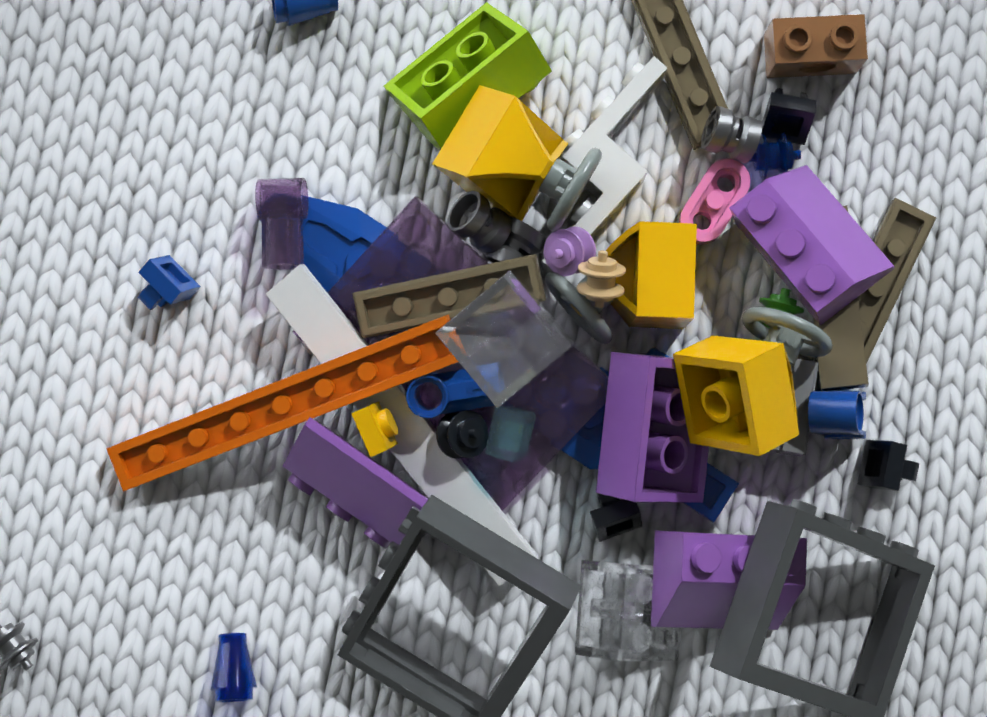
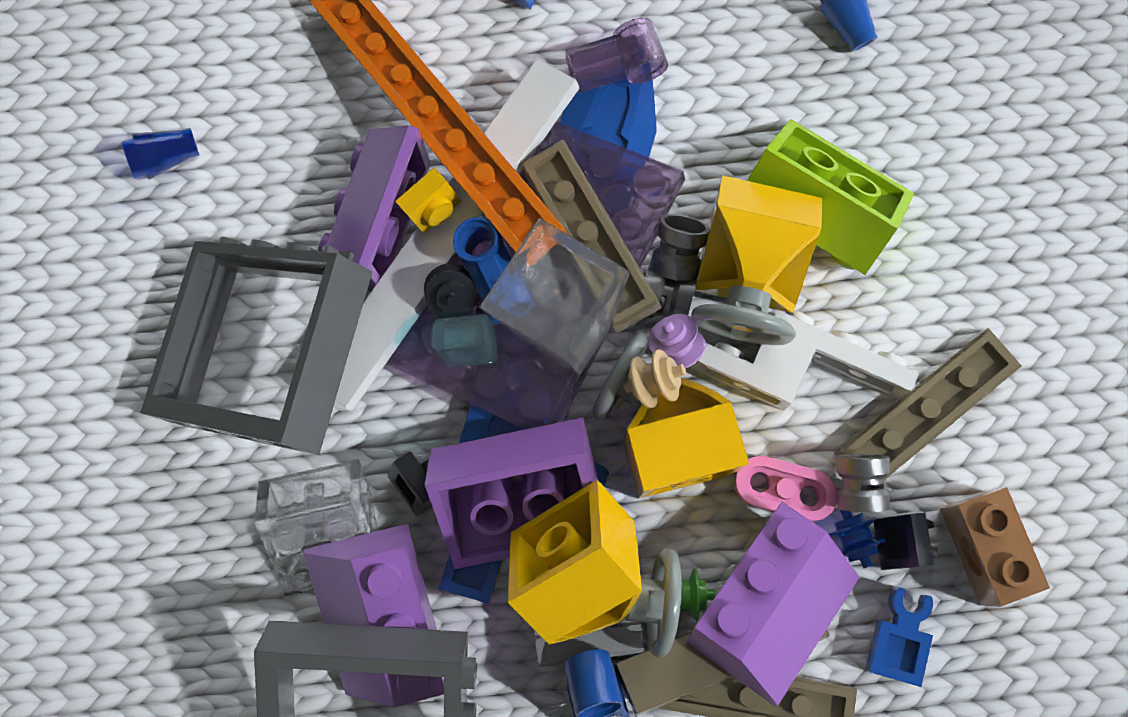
camera: 75 degrees right, 5 degrees down
(873, 151) = (898, 647): none -> blue plate

